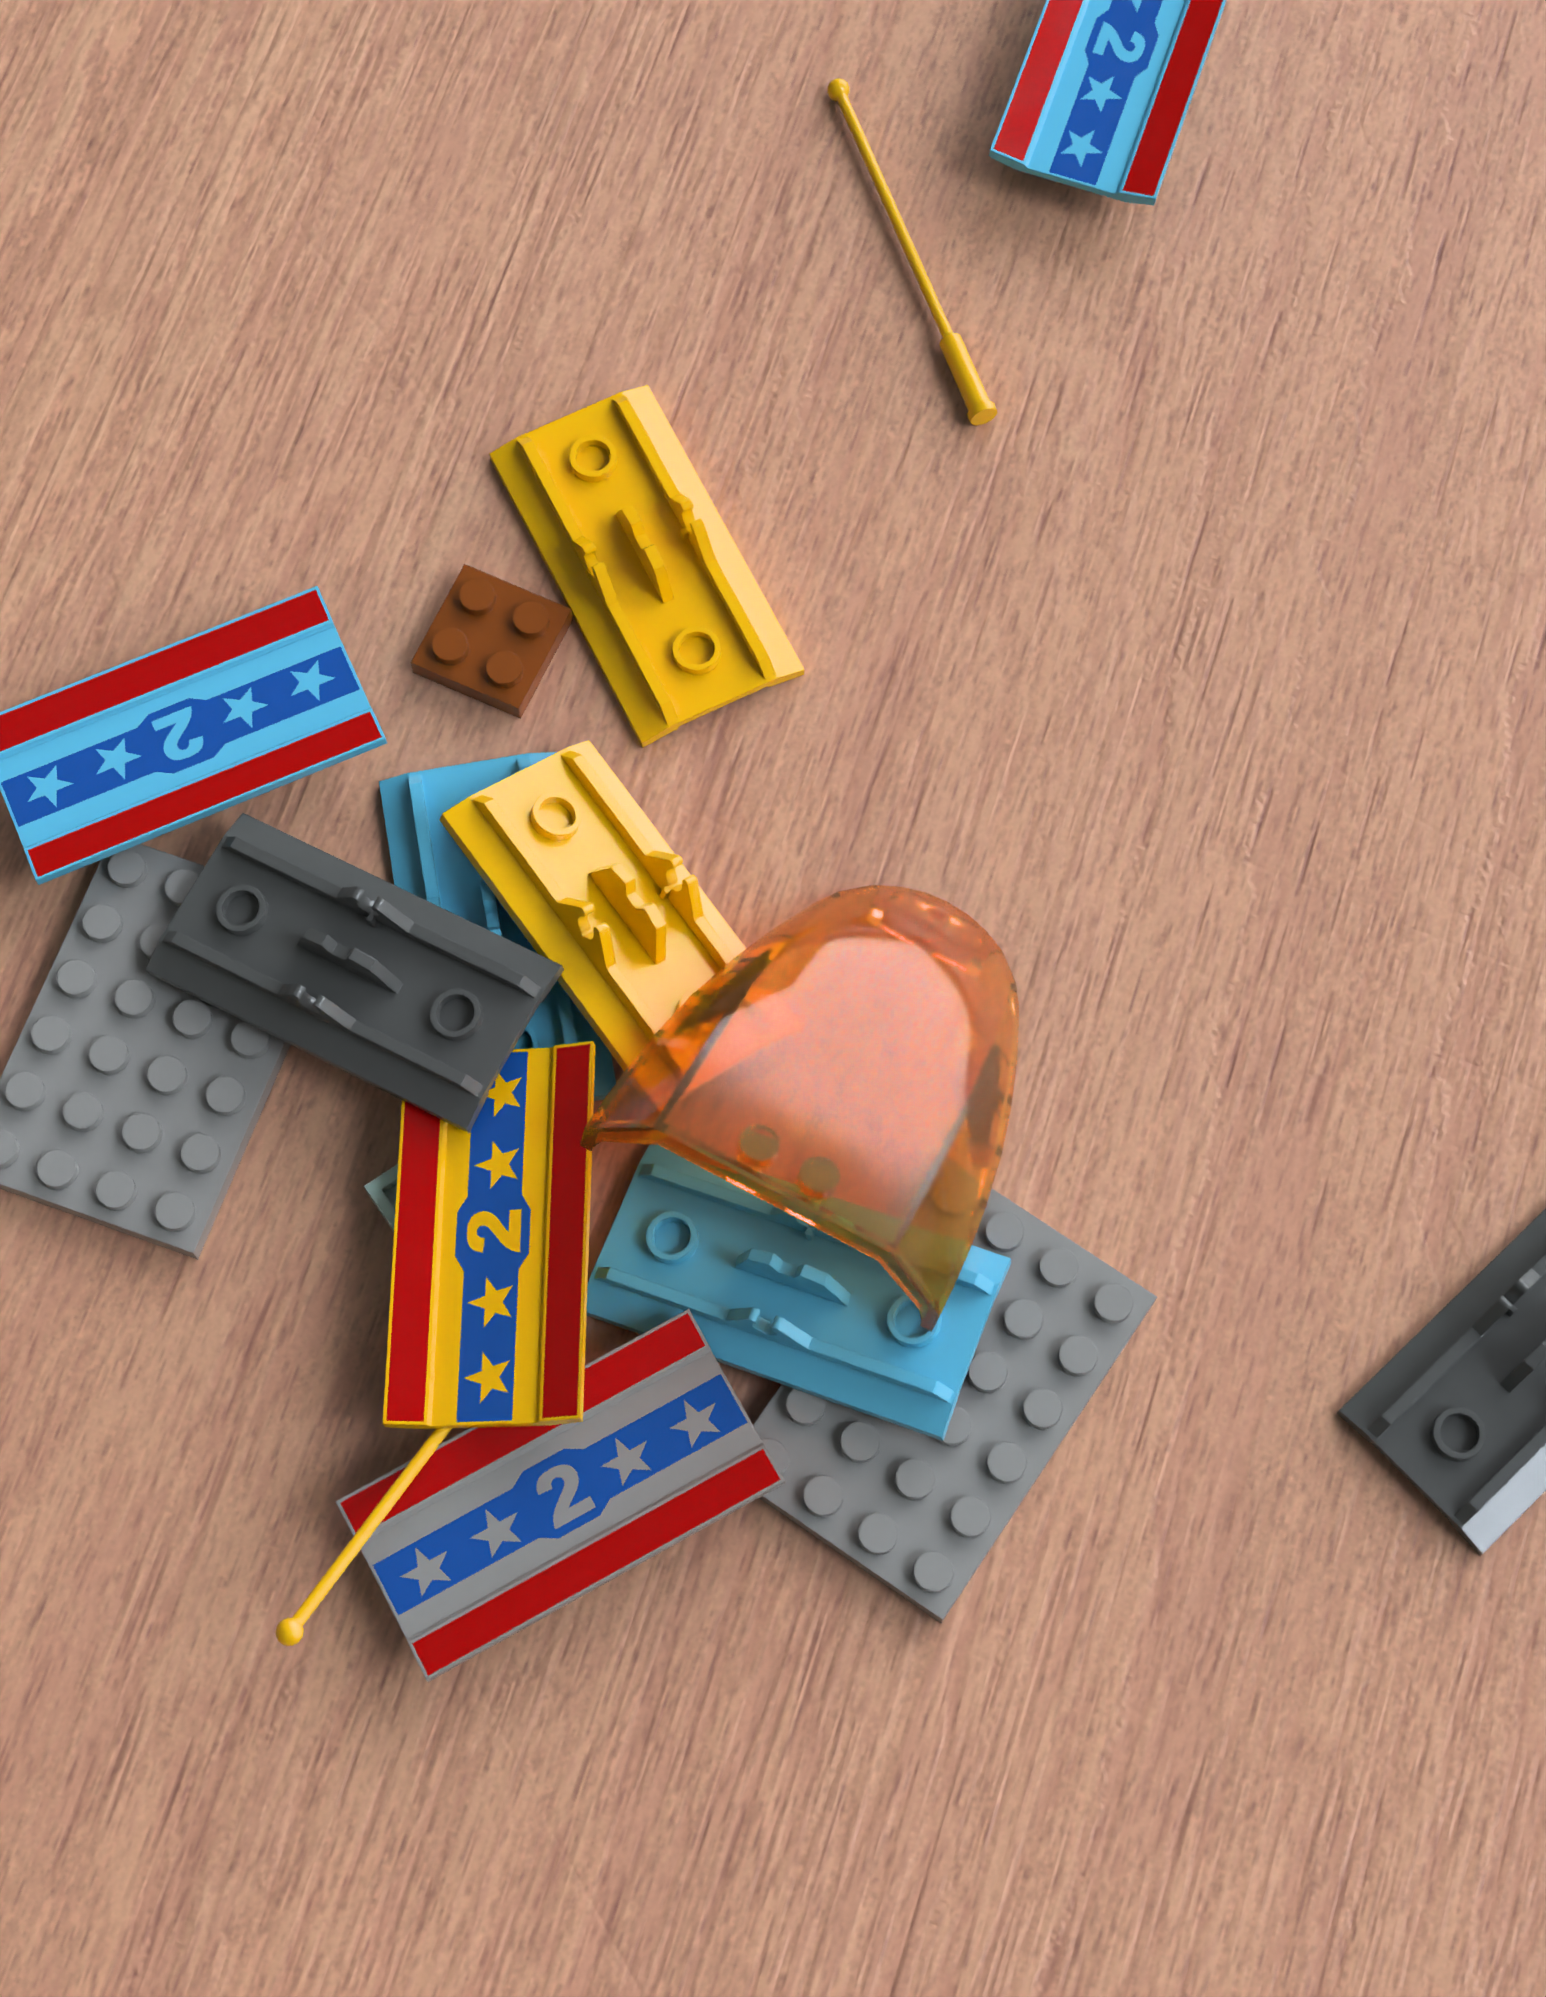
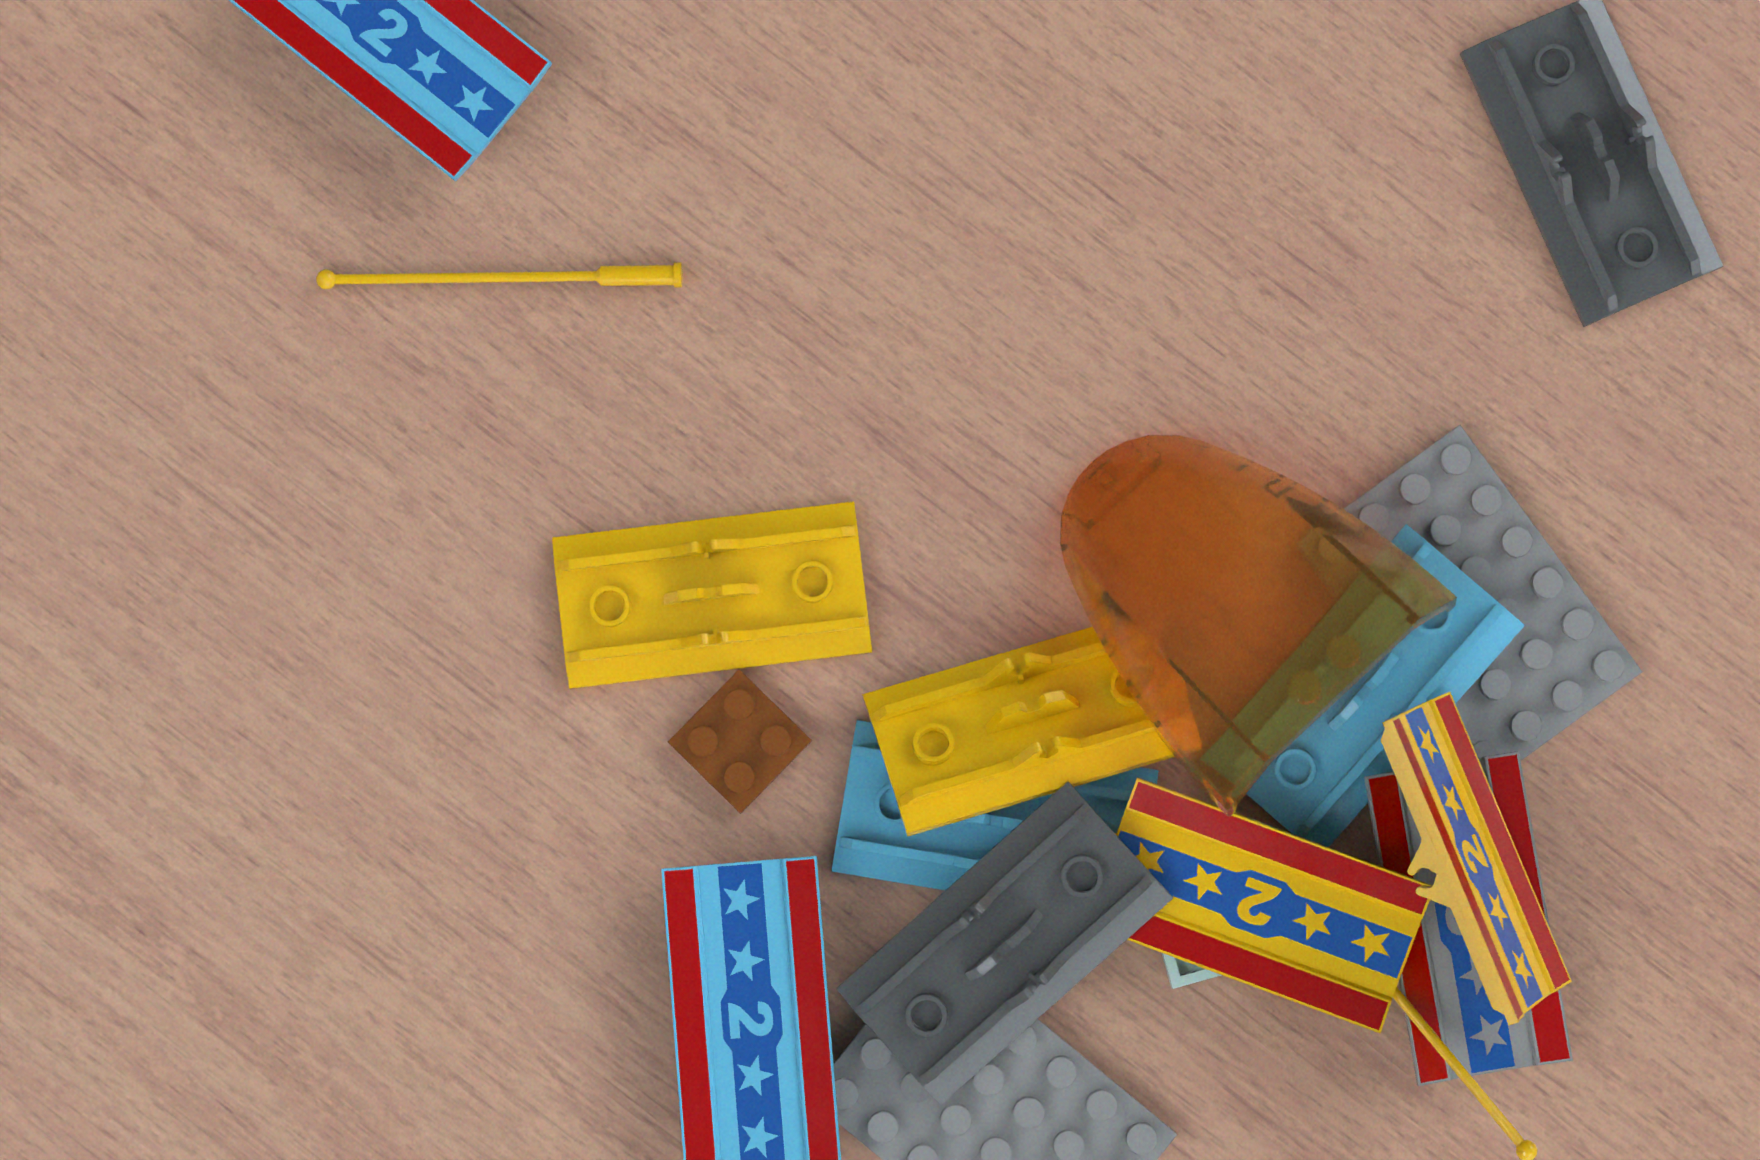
camera: 70 degrees left, 15 degrees up
(630, 1445) = (1472, 857): none -> hinge

